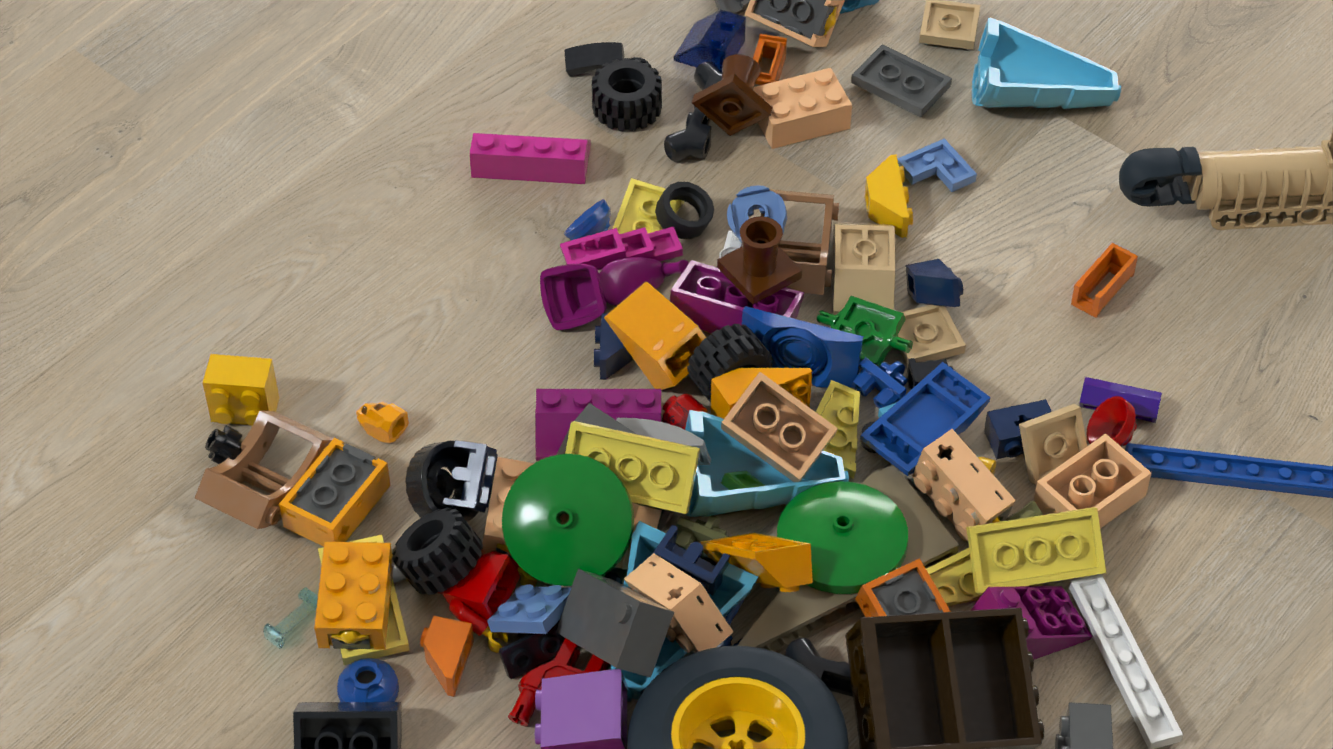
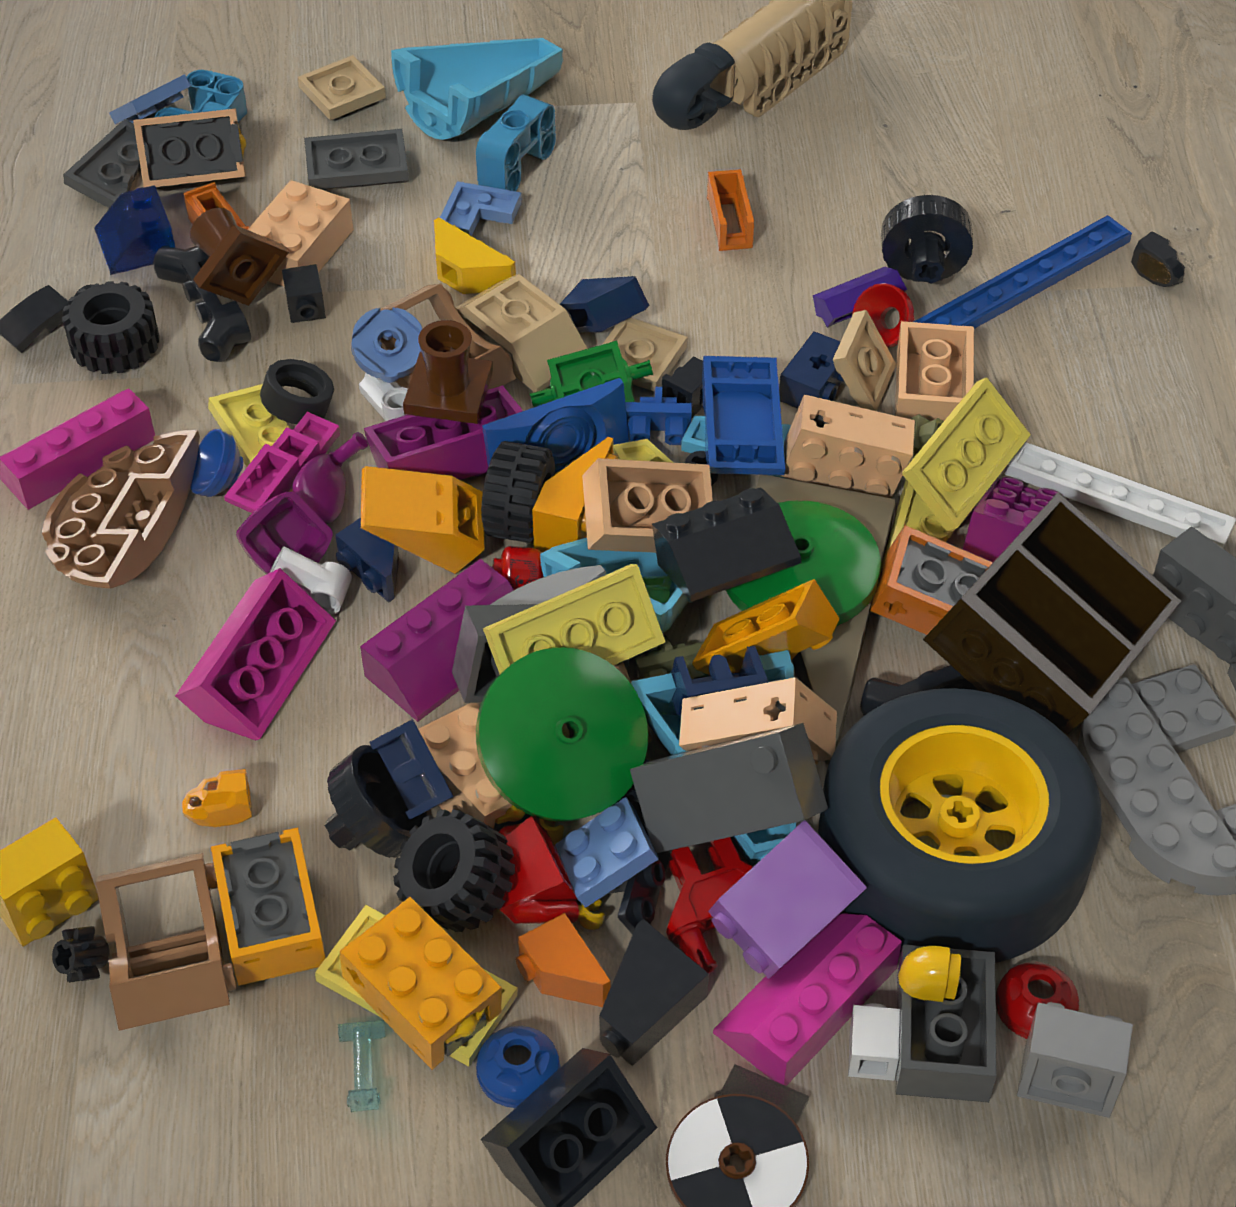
camera: 45 degrees left, 0 degrees up
(469, 705) = (649, 994): none -> black slope
(488, 355) = (256, 656): none -> dark pink slope
(509, 215) = (123, 514): none -> medium nougat brick
(567, 338) = (323, 582): none -> white piece
(763, 150) = (303, 293): none -> black brick
(788, 483) = (725, 544): none -> black slope
(1006, 129) = (521, 130): none -> dark azure beam
(1192, 385) = (924, 256): none -> black piece

